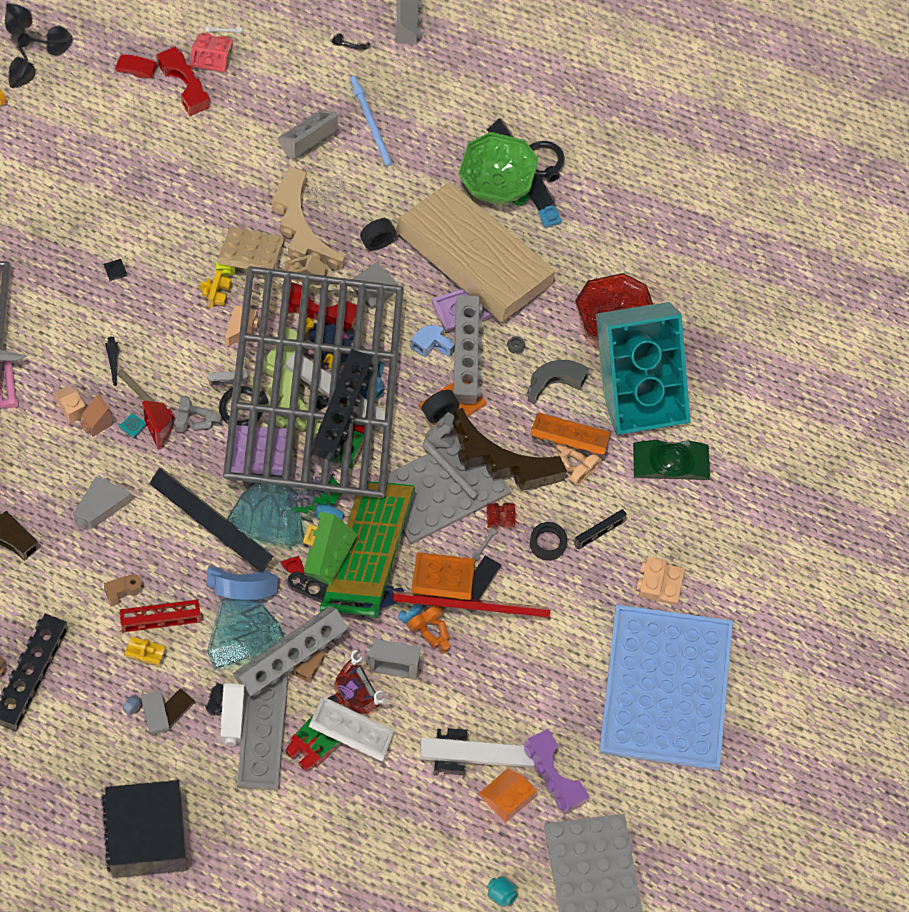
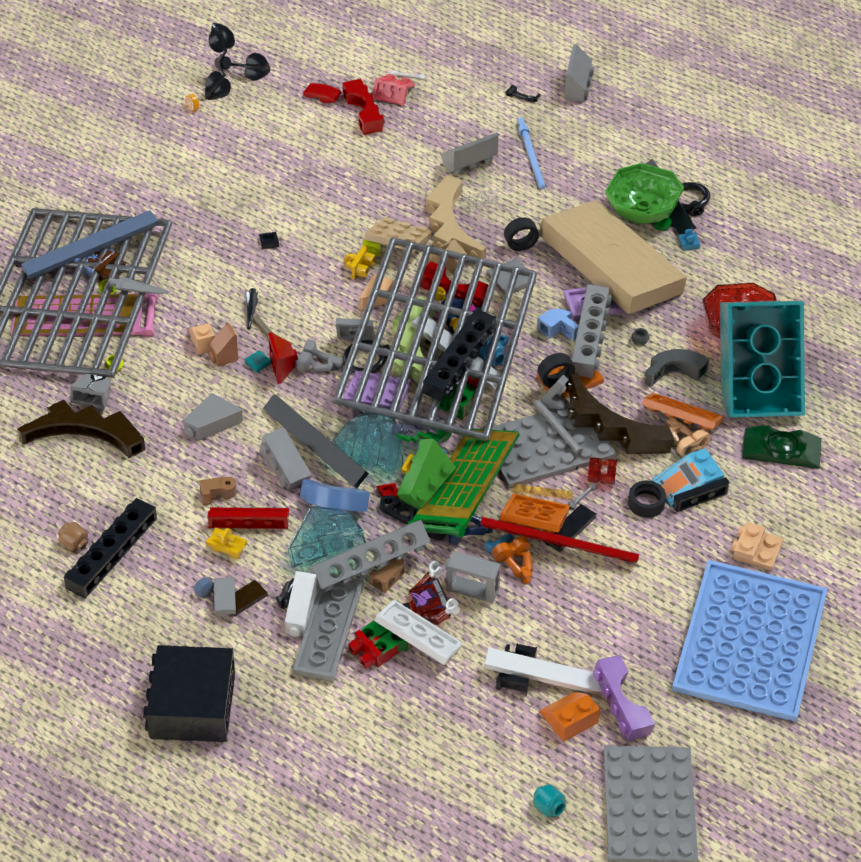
camera: 15 degrees right, 15 degrees down
(185, 546) = (284, 458): none -> light grey wedge
(445, 544) = (543, 491): none -> clear yellow bar
(585, 509) = (688, 473): none -> medium azure slope

